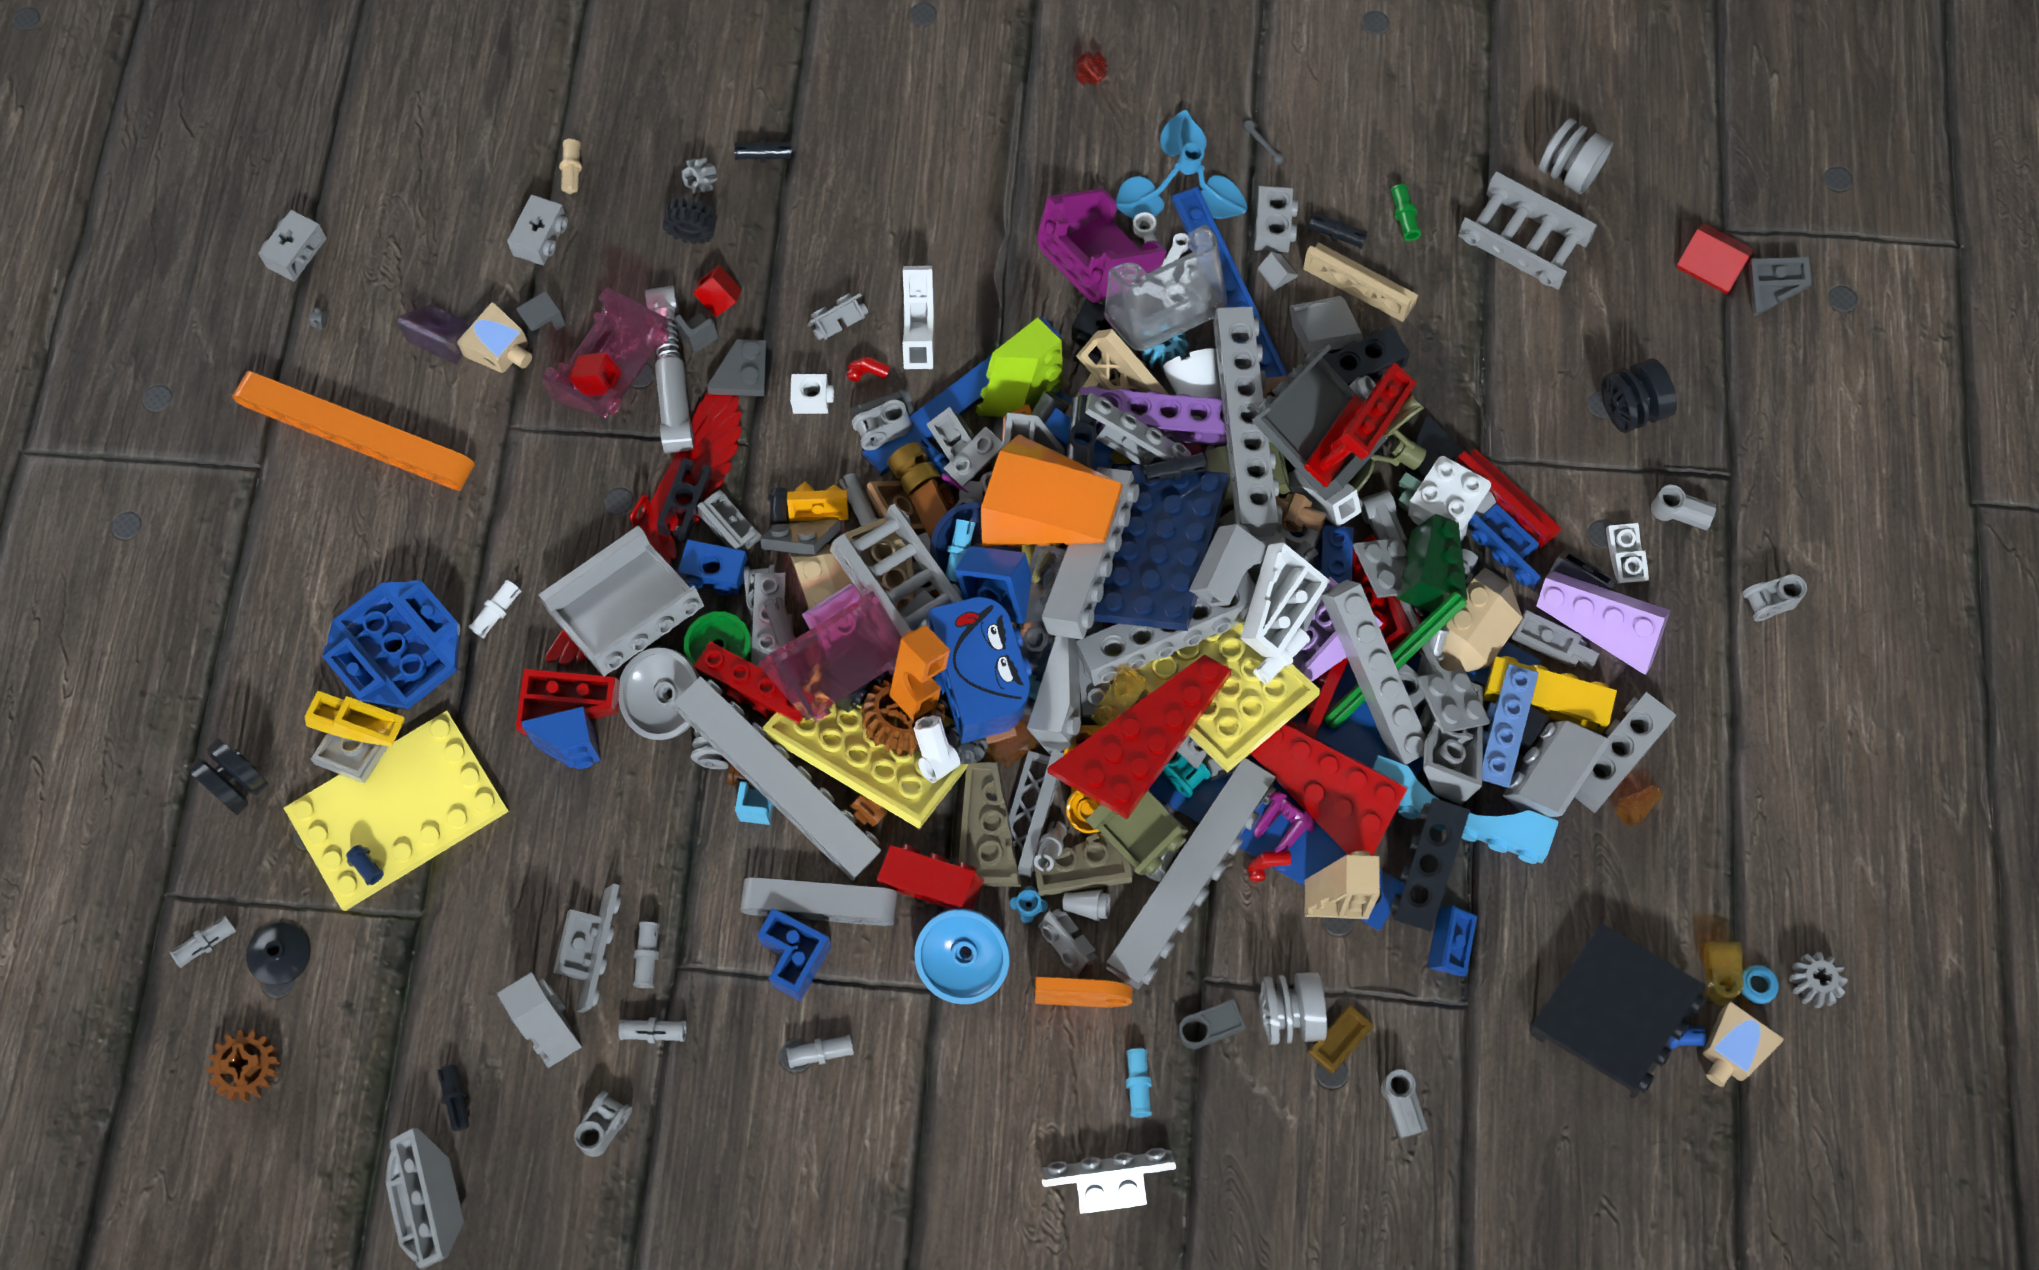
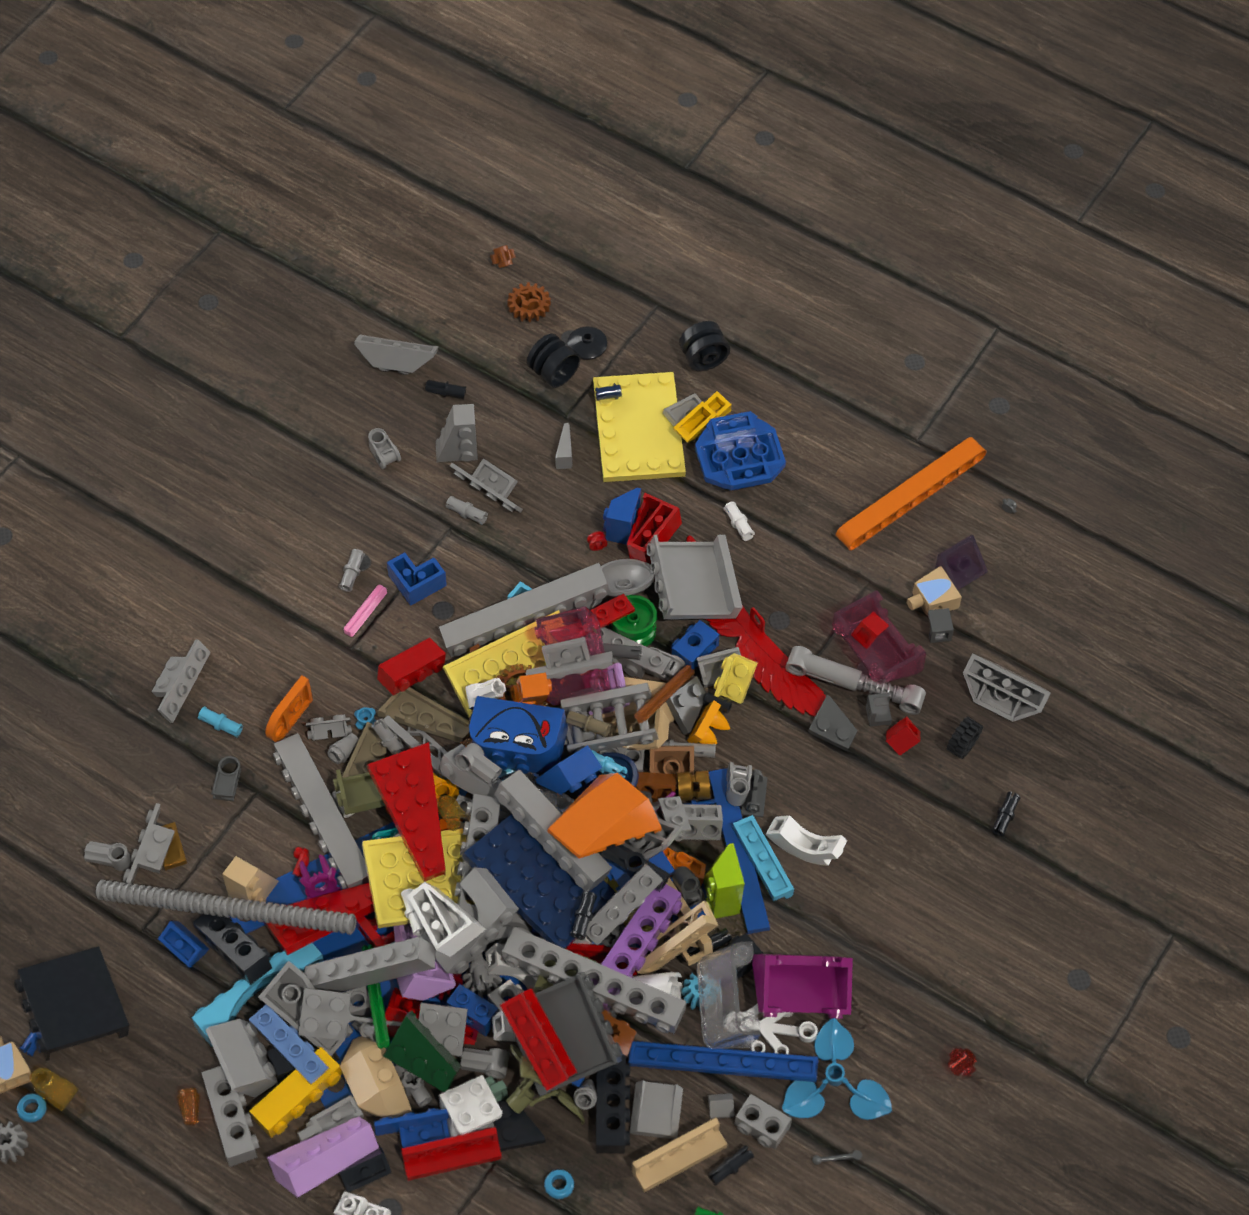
camera: 115 degrees right, 10 degrees down
(172, 1149) = (502, 256): none -> dark orange gear
(202, 941) = (615, 309): light grey pin -> none
(292, 245) = (1073, 509): light grey brick -> none
(342, 966) = (553, 360): none -> black wheel
(486, 877) = (564, 453): none -> light grey slope
(537, 230) = (1010, 649): light grey brick -> none
(570, 166) = (1057, 692): tan axle -> none
(599, 206) = (1003, 690): none -> light grey wedge
(613, 762) = (597, 541): none -> red bush
(652, 1030) = (420, 495): light grey pin -> none
(688, 511) = (750, 638): black piece -> none
(699, 175) = (1003, 763): light grey gear -> none
(739, 493) = (735, 677): none -> light yellow bracket
(805, 383) = (790, 747): white brick -> none
(819, 901) = (440, 606): light grey beam -> none
(820, 540) = (664, 694): none -> dark orange axle
(847, 309) = (846, 807): light grey hinge -> none
(849, 654) = (570, 658): none -> light grey bracket
(866, 365) = (795, 796): red arm -> none
(870, 998) = (365, 610): none -> bright pink axle
(919, 589) = (588, 723): none -> dark tan axle
(949, 971) = (354, 661): dark azure dish -> none
(962, 360) = (763, 858): none -> medium azure hinge
(1051, 690) = (473, 759): none -> light grey piece
(1293, 1008) = (201, 818): light grey wheel -> none
(1298, 513) = (513, 987): medium nougat axle -> none
(1362, 1053) = (153, 847): none -> light grey bracket
(1398, 896) = (225, 906): none -> light grey piece
(1462, 389) = (559, 1174): none -> dark azure piece

